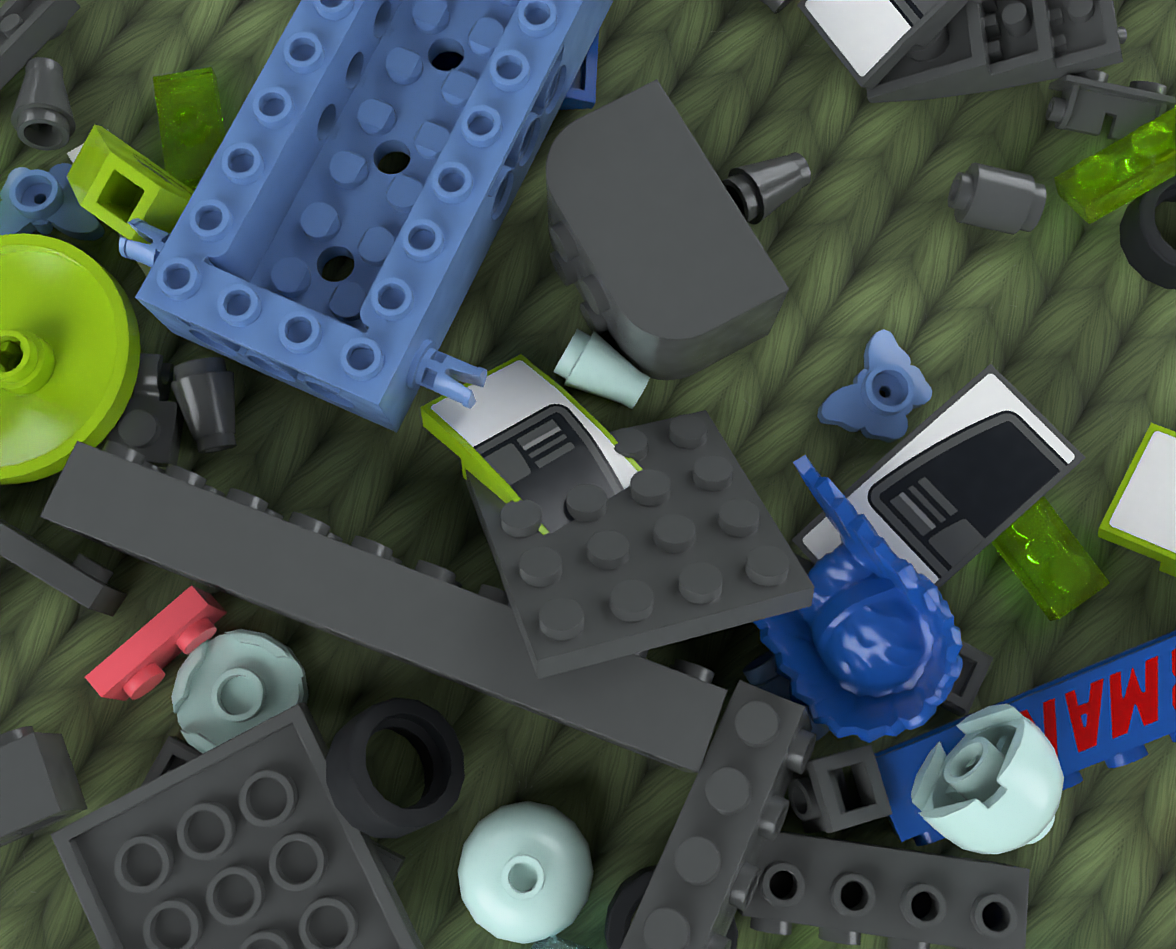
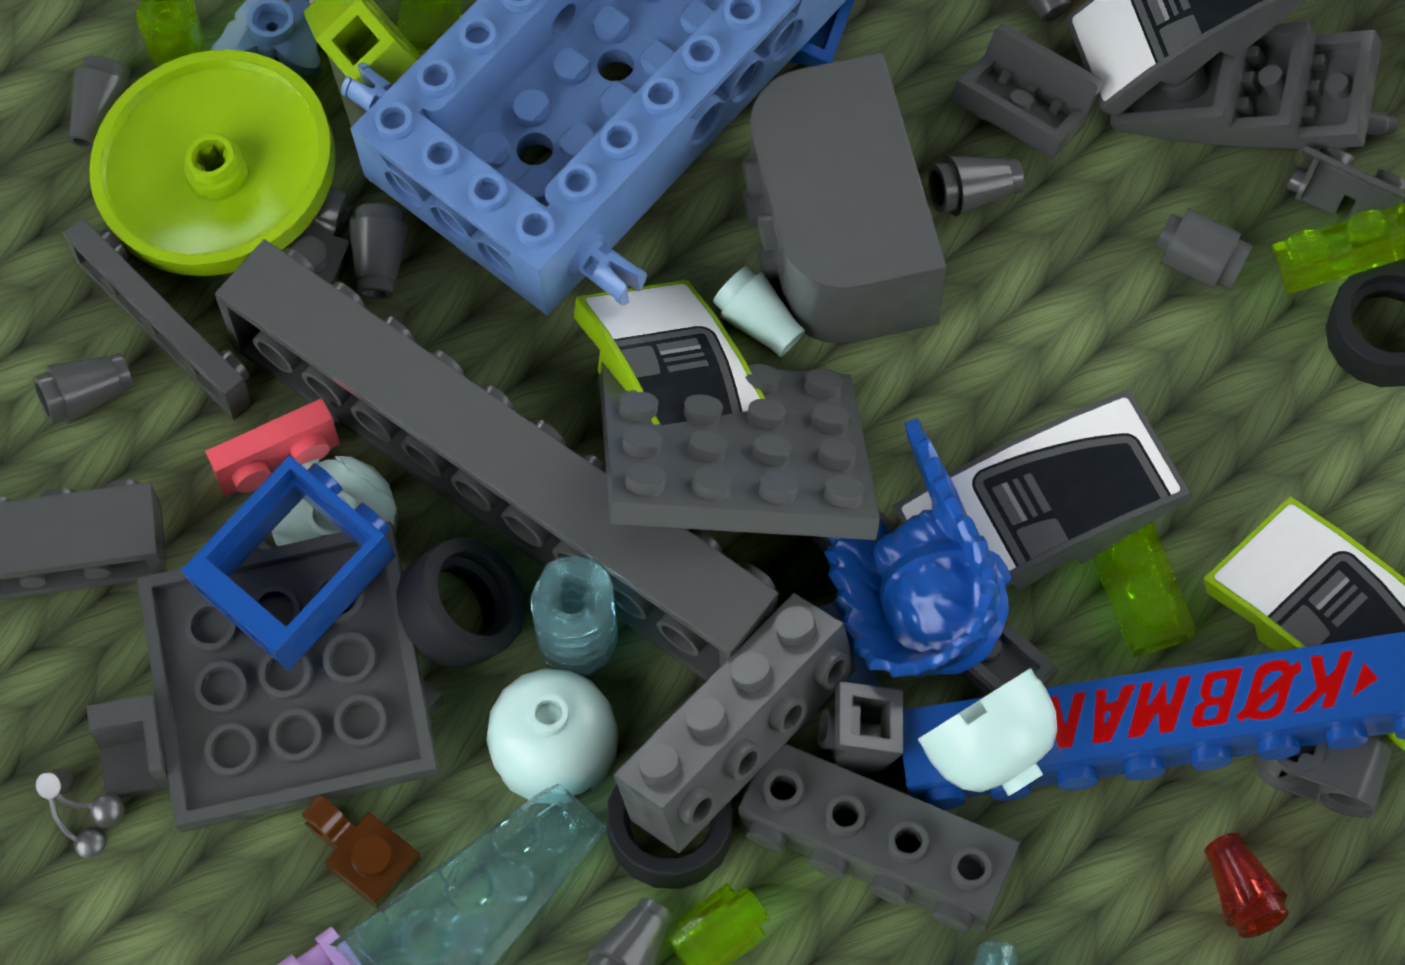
camera: 20 degrees right, 10 degrees down
(165, 853) = (252, 523): none -> blue window
(489, 759) = (574, 615): none -> clear light blue piece
(789, 84) = (1028, 91): none -> dark grey bracket
(863, 407) = (1005, 408): medium blue animal -> none

